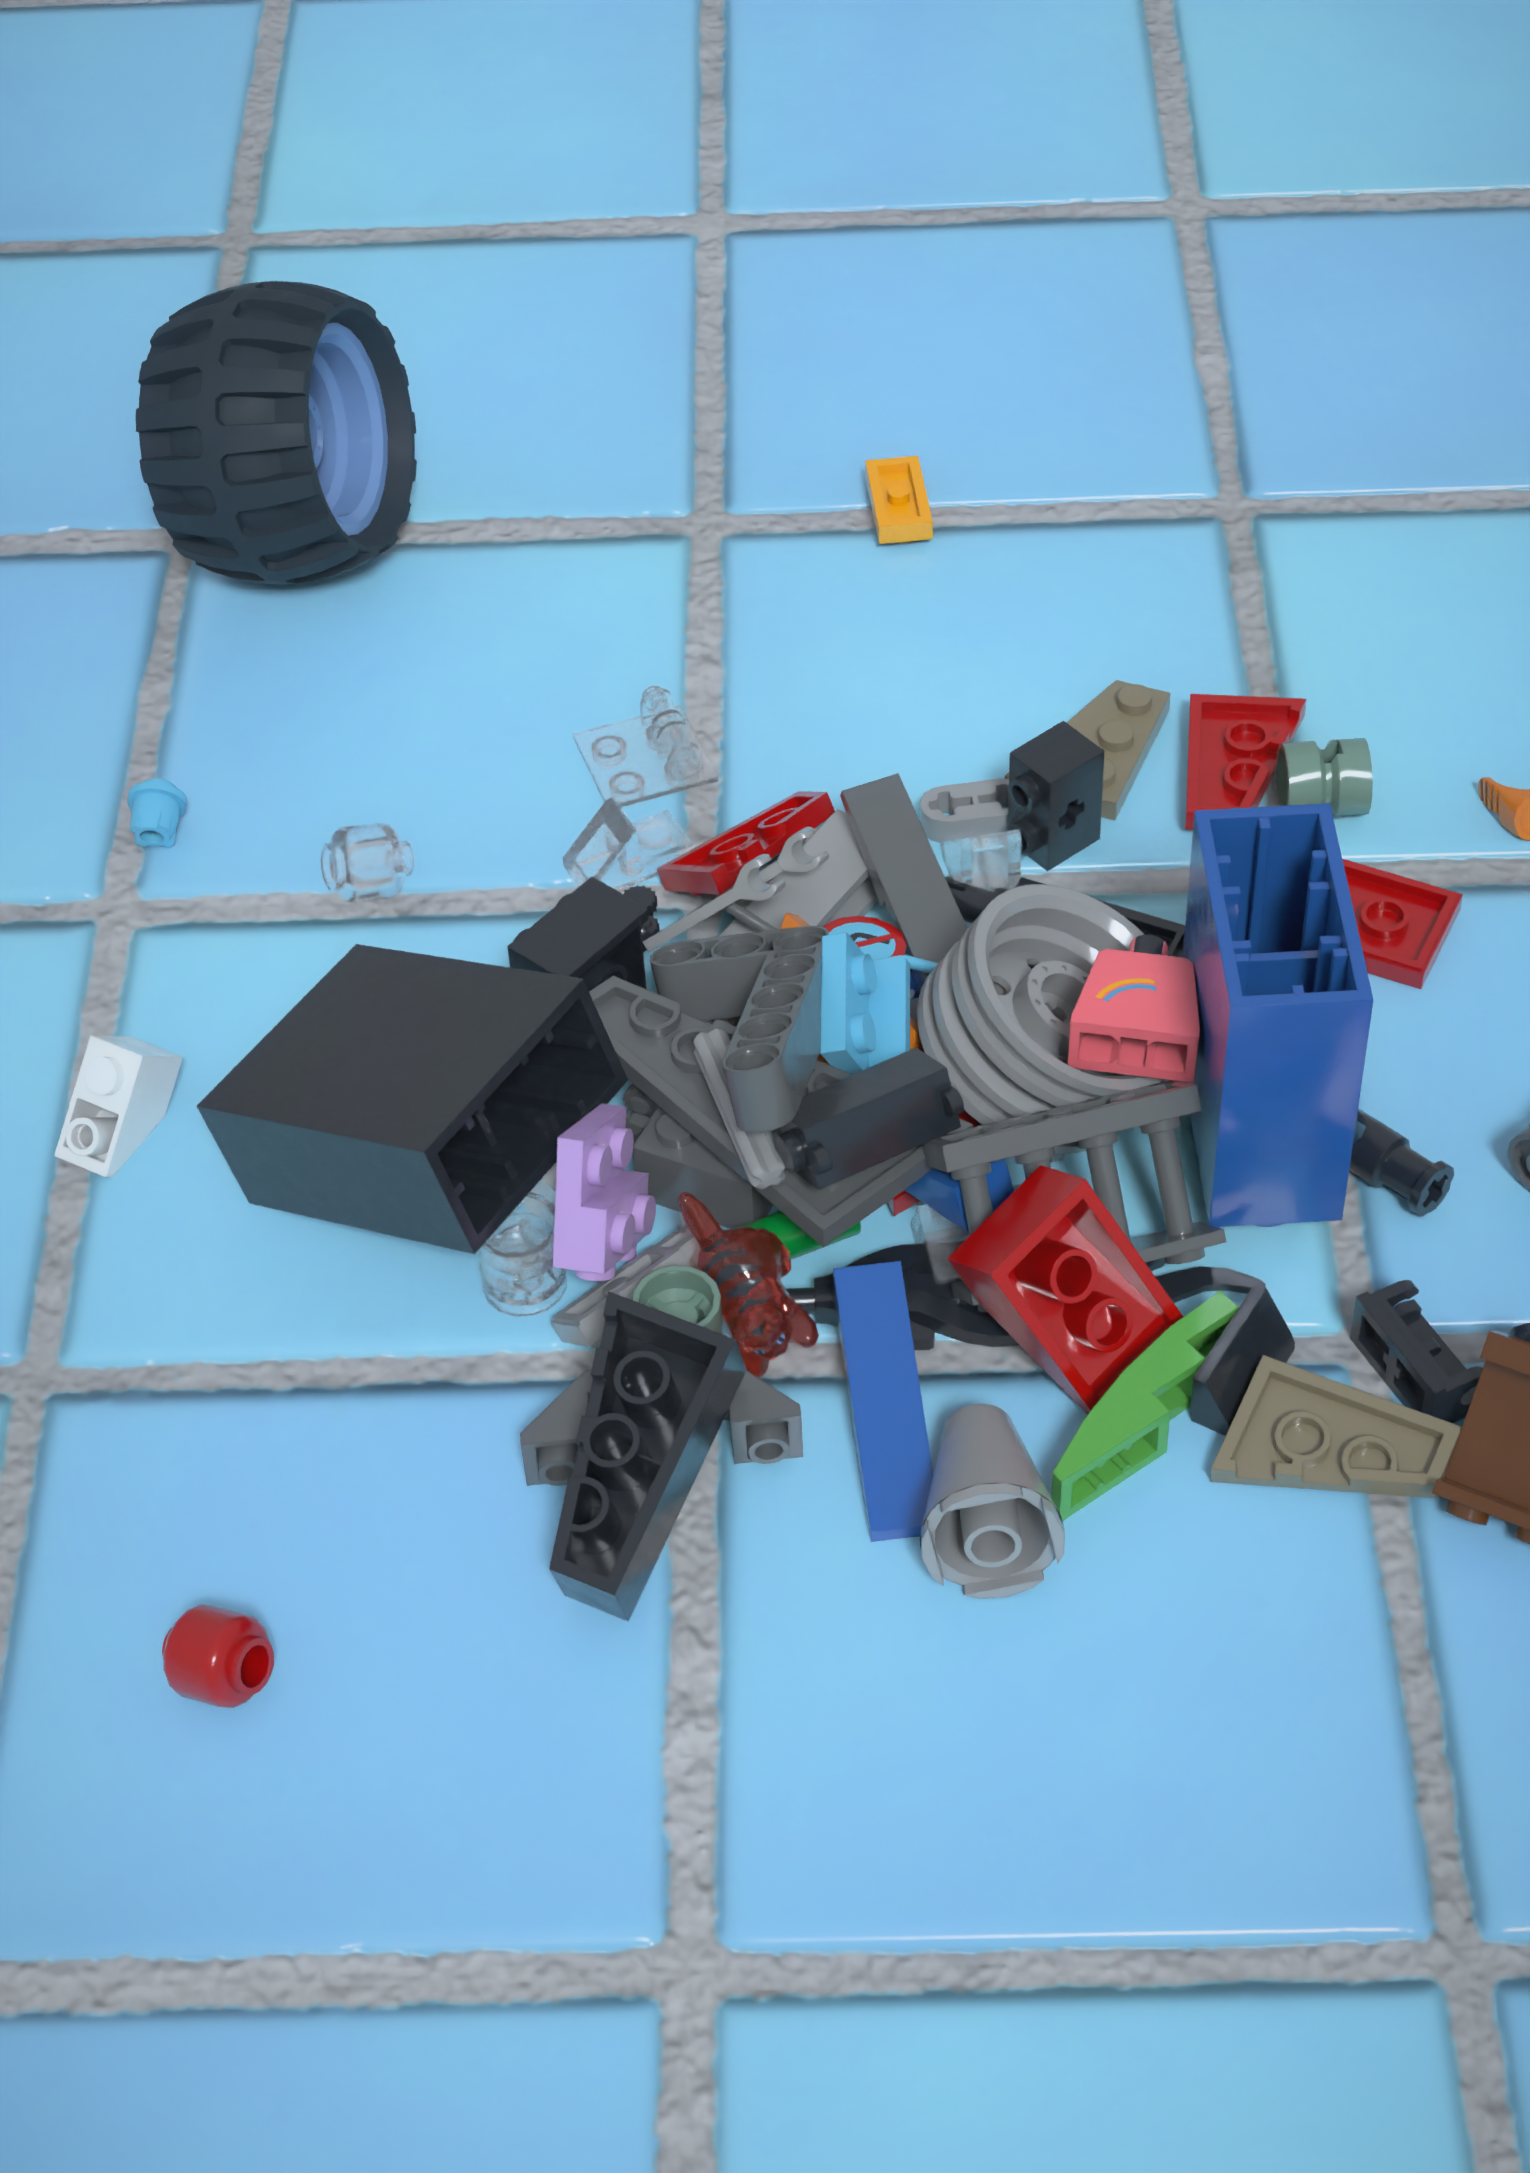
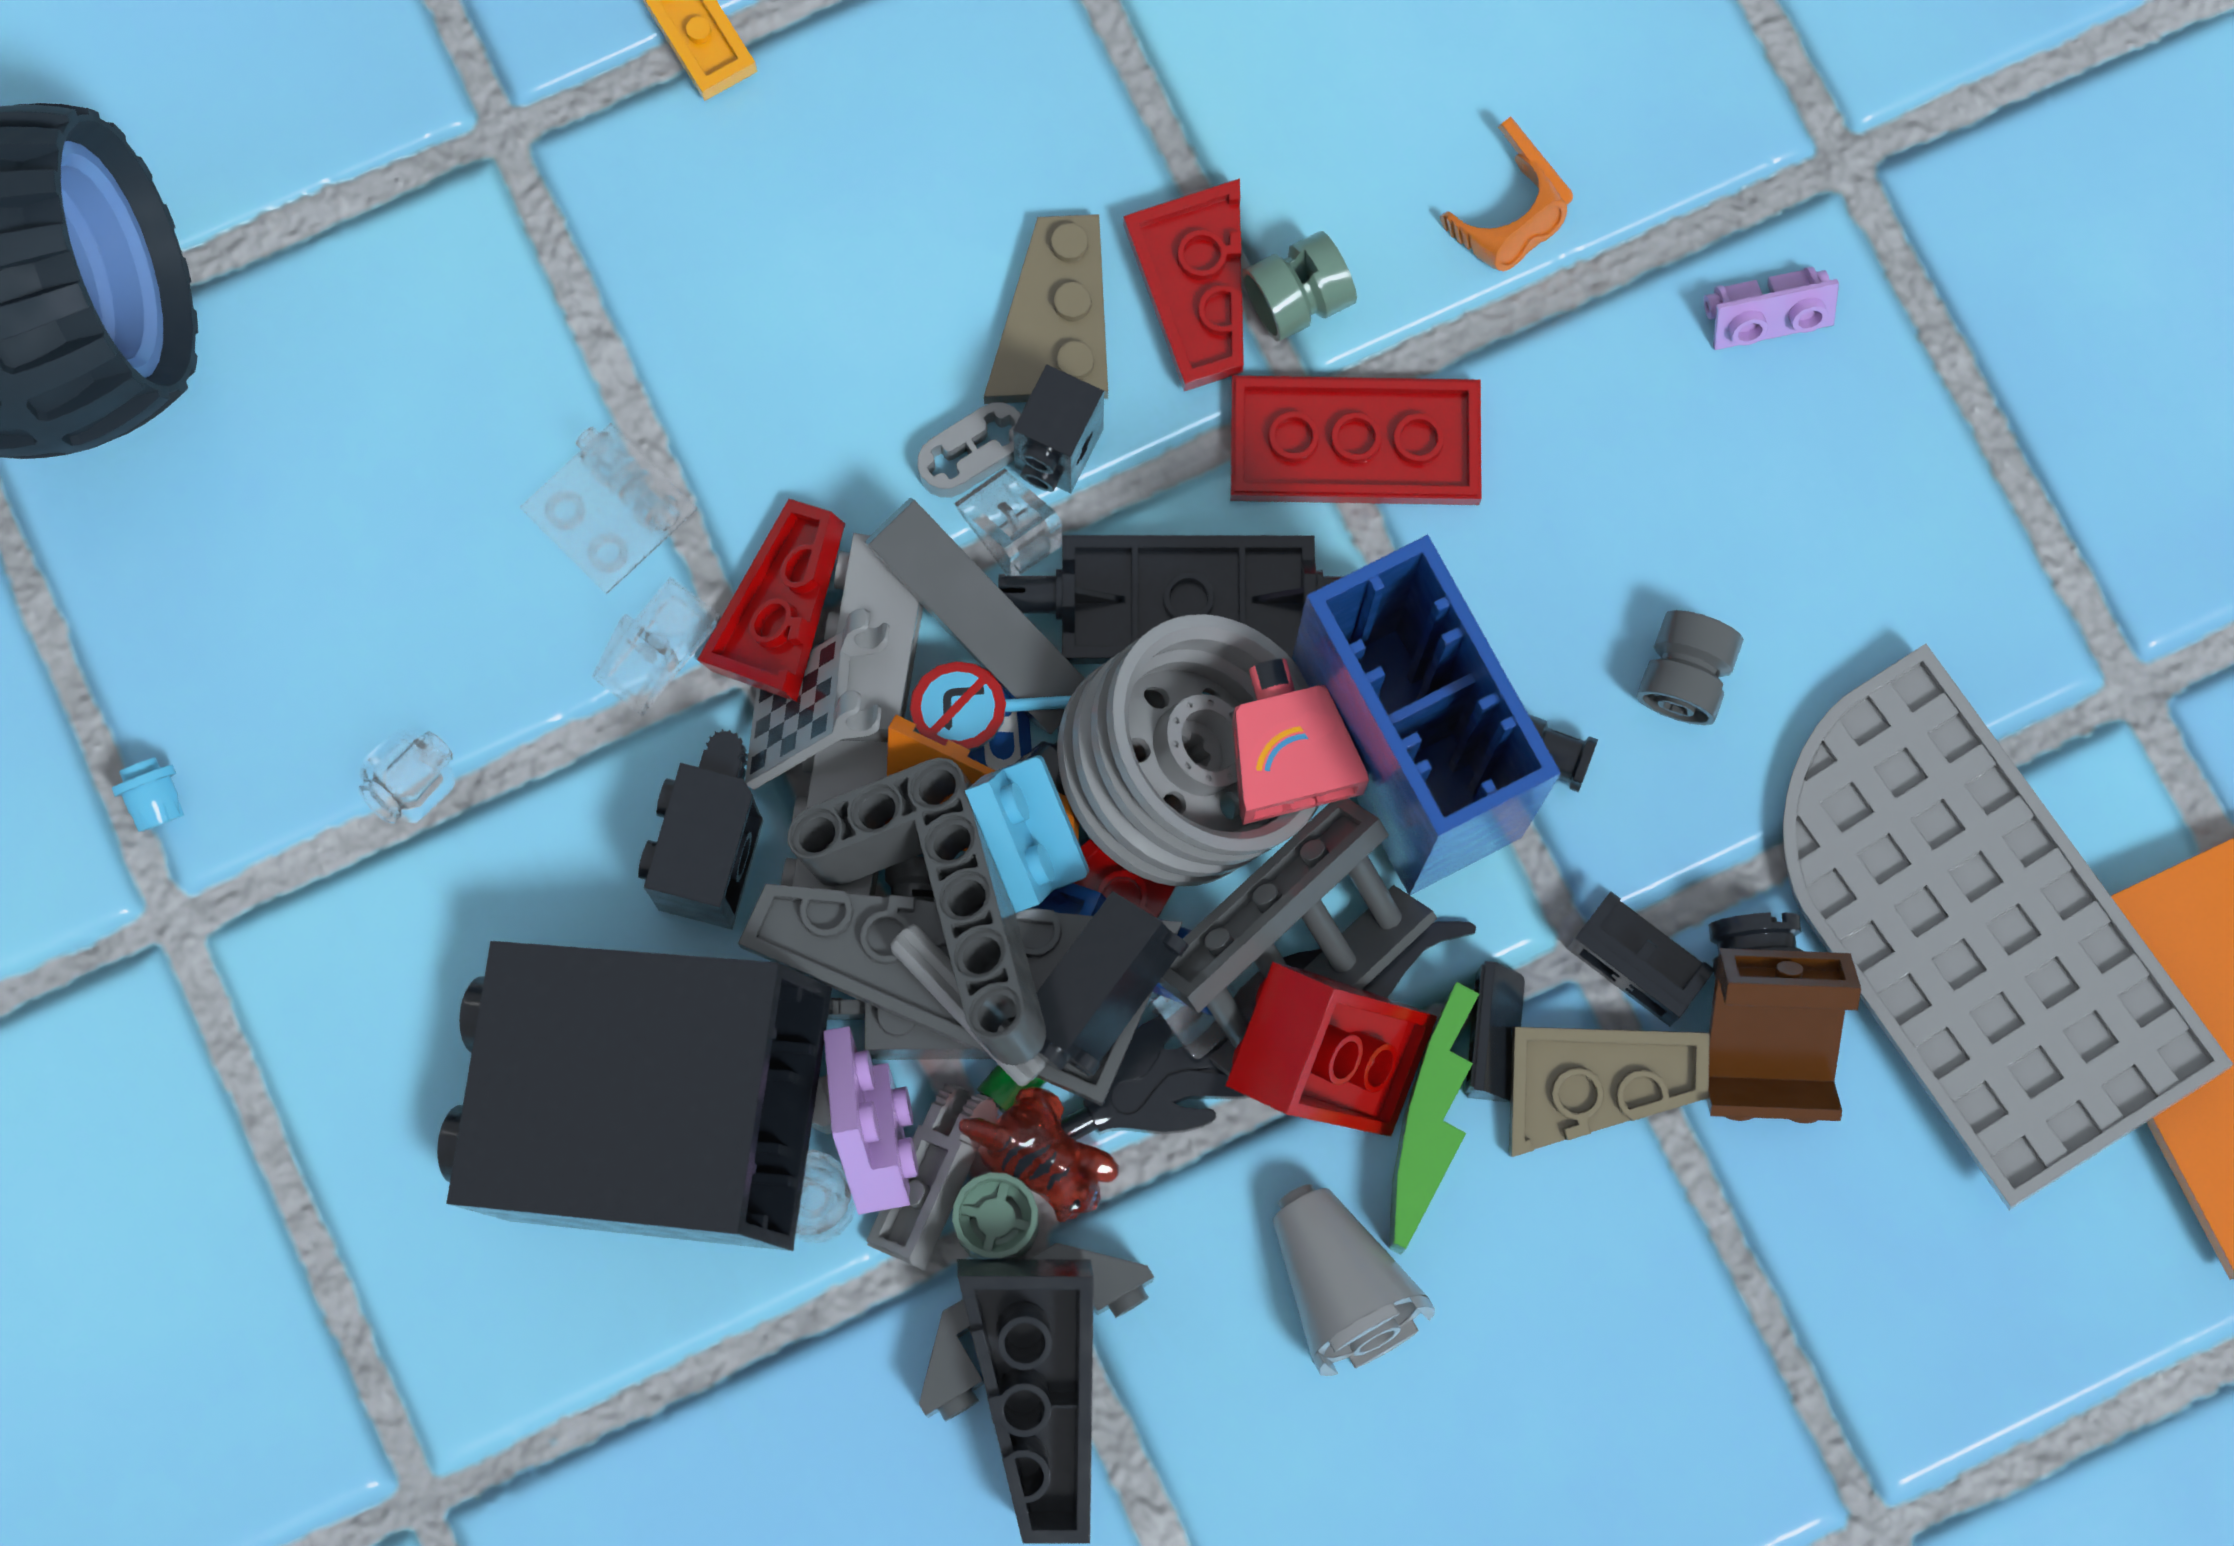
camera: 30 degrees left, 30 degrees up
(116, 1102) = (328, 1176): white slope -> none
(884, 1397) = (1208, 1211): blue slope -> none

